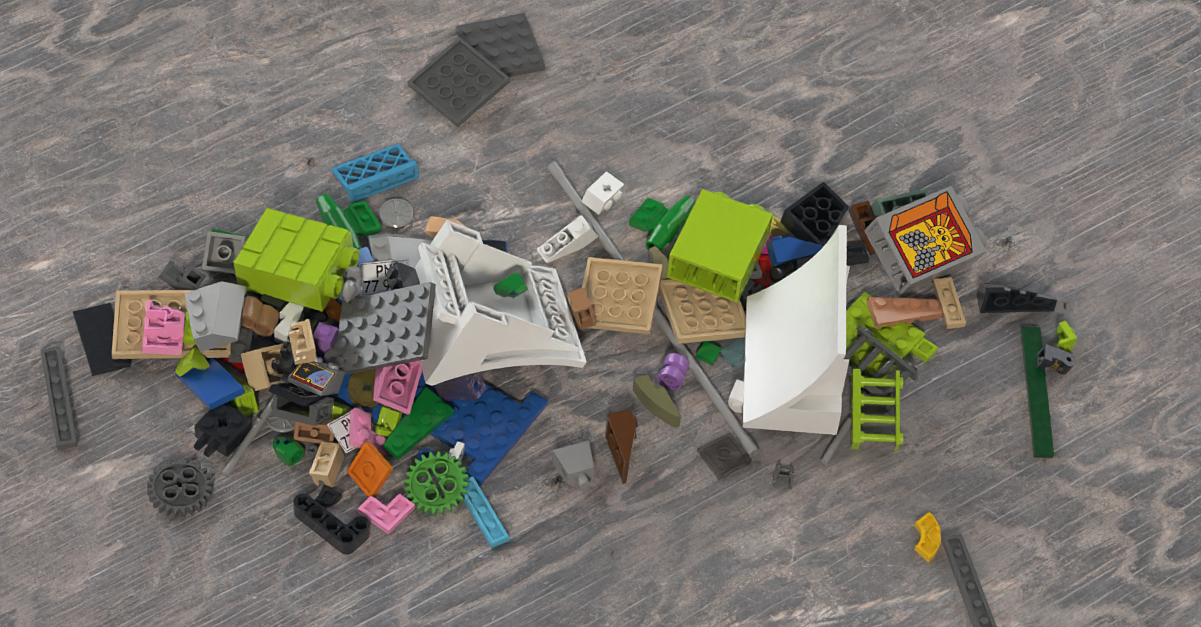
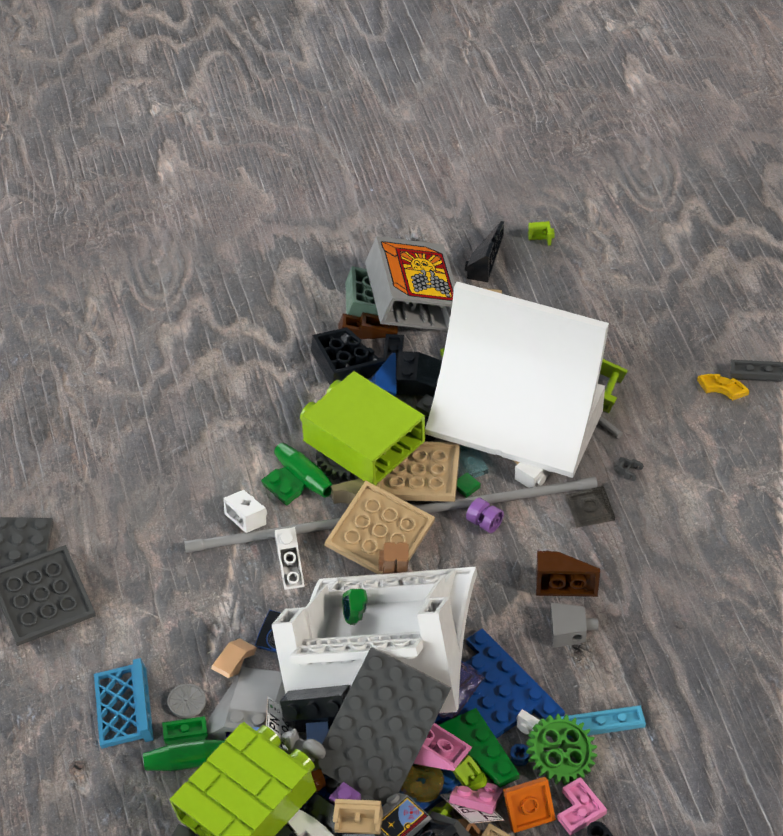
camera: 65 degrees left, 5 degrees down
(656, 400) = (513, 538): olive slope -> none
(1037, 394) = (589, 268): dark green tile -> none
(1055, 359) = (564, 244): black leg -> none

